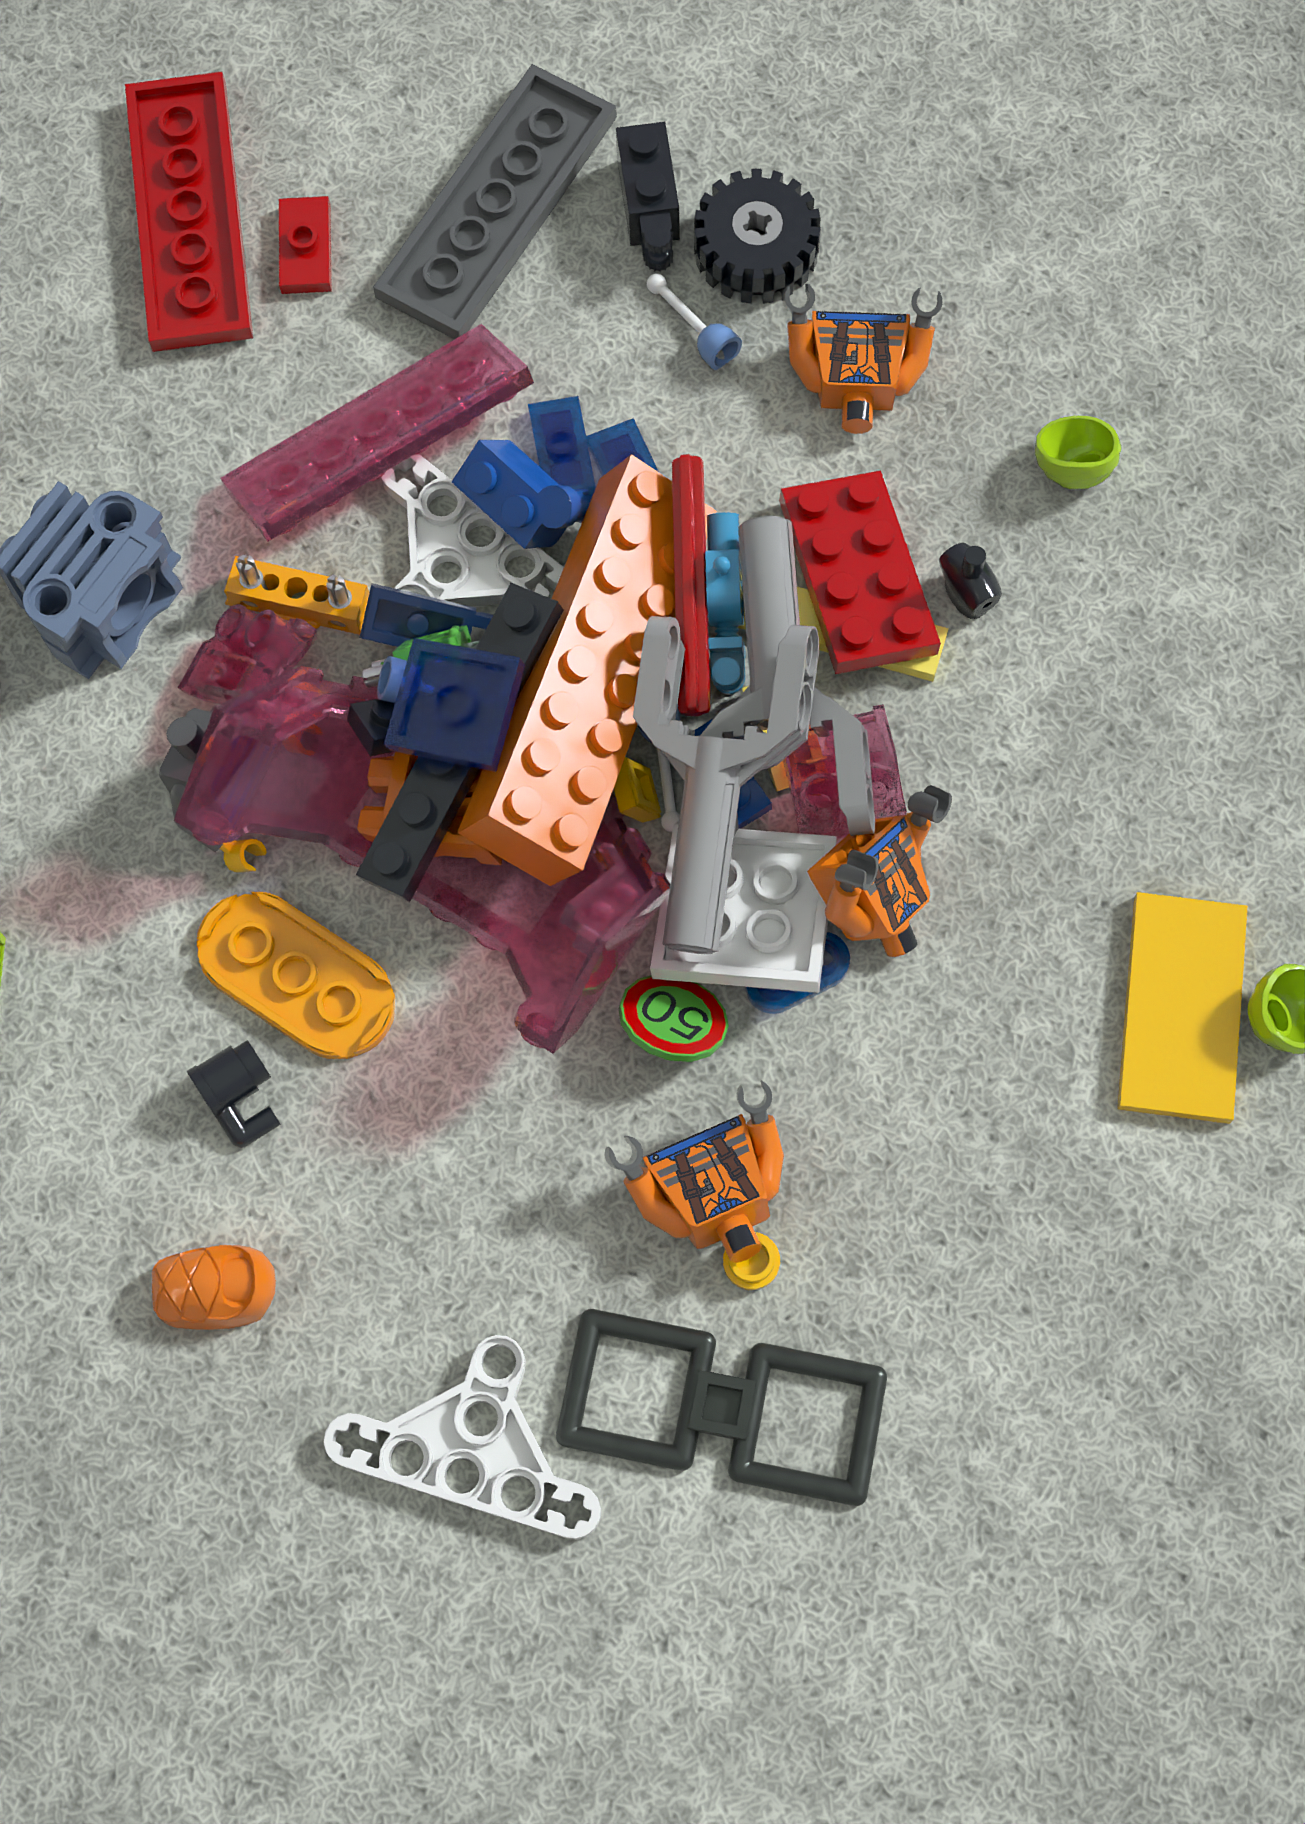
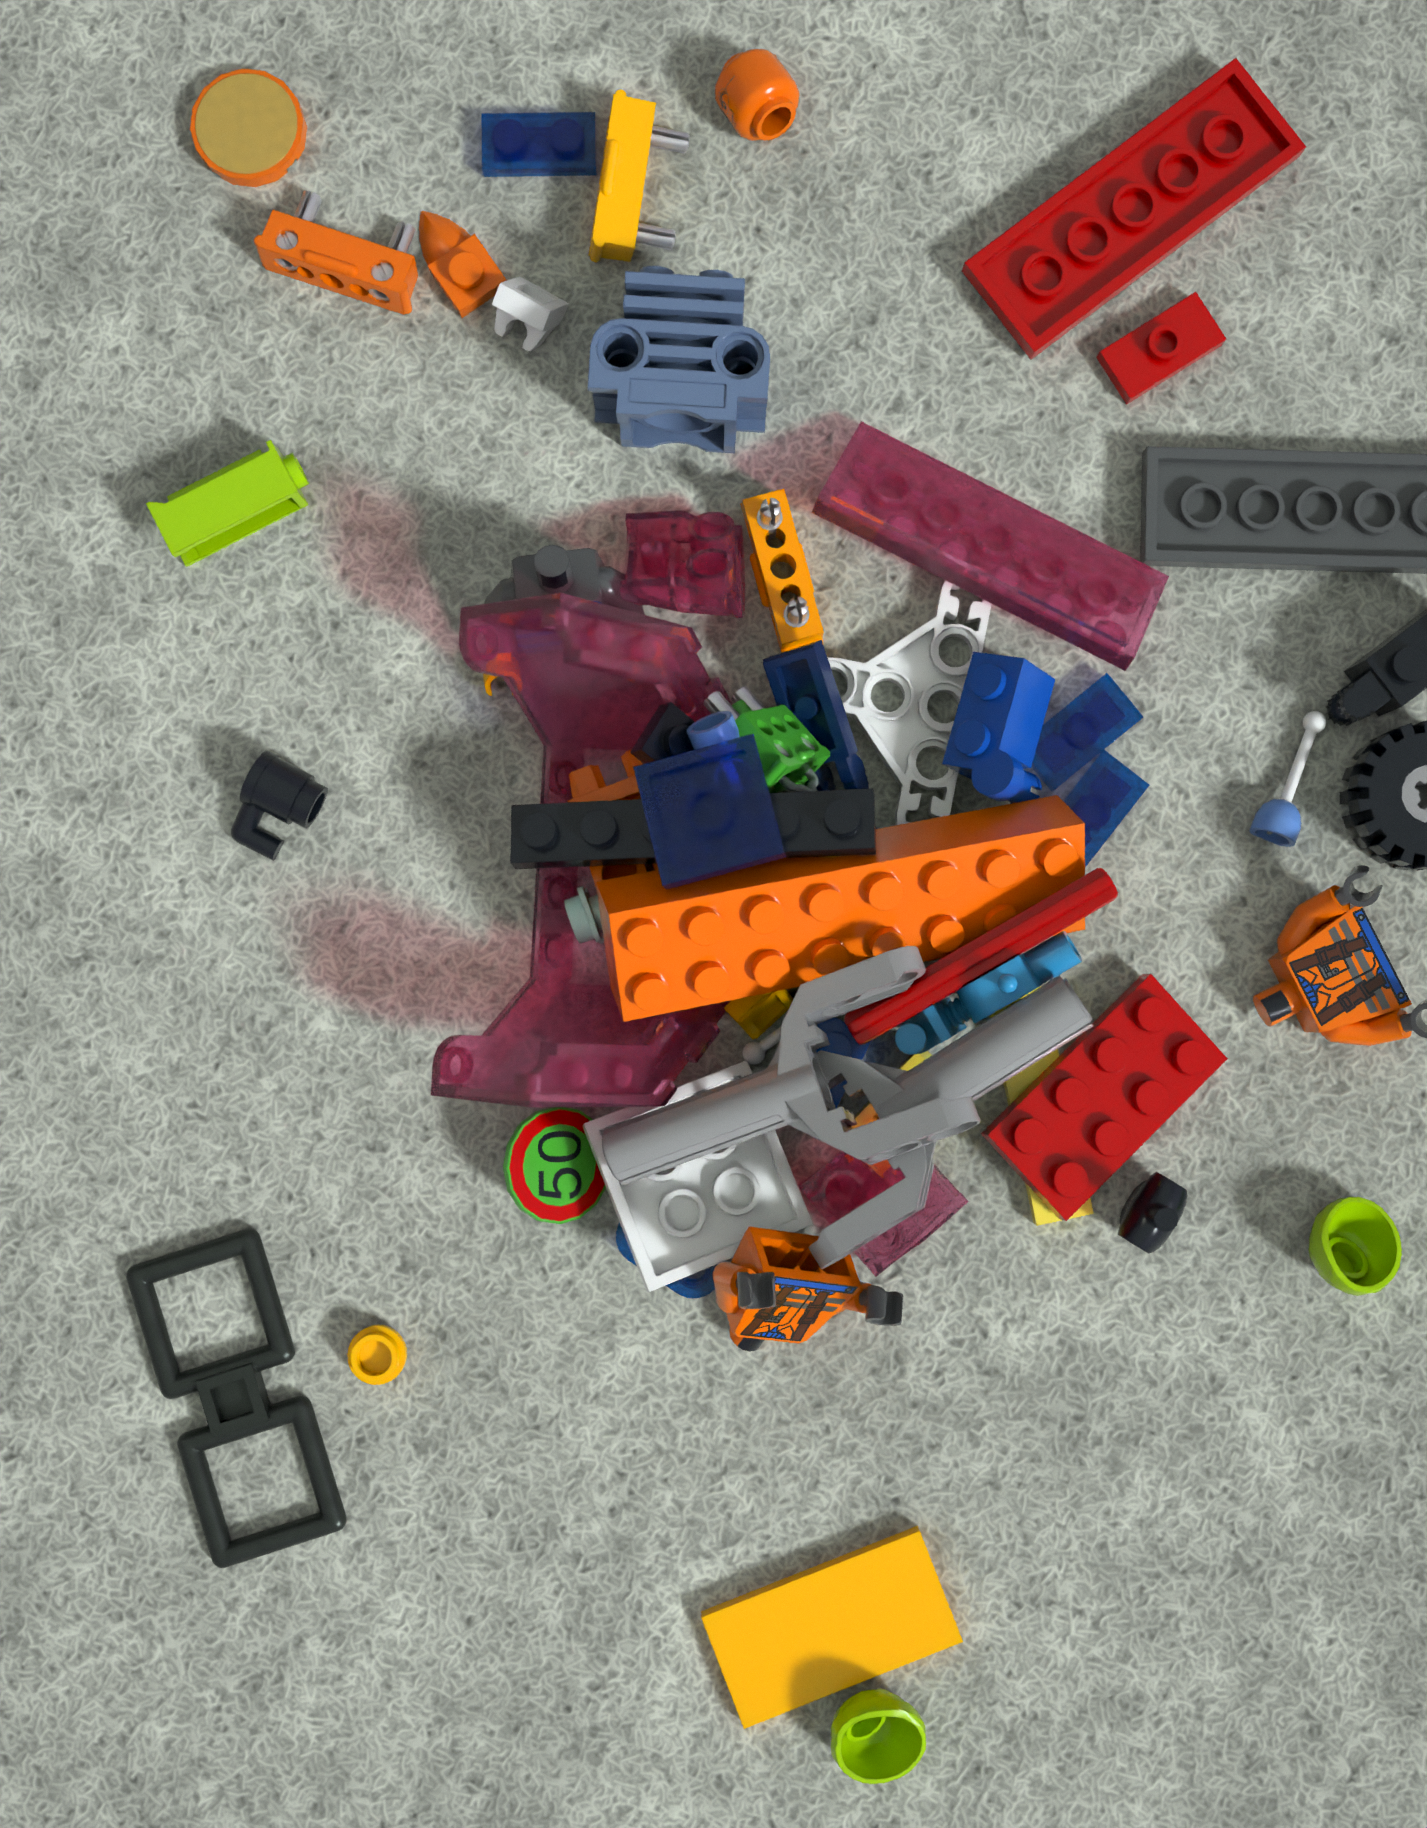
camera: 60 degrees right, 15 degrees up
(213, 1287) = (96, 889): orange piece -> none
(296, 975) = (415, 791): light orange tile -> none
(443, 1437) = (75, 1171): white beam -> none
(482, 881) = (585, 916): none -> light aqua plate
(712, 1181) = (420, 1286): torso -> none

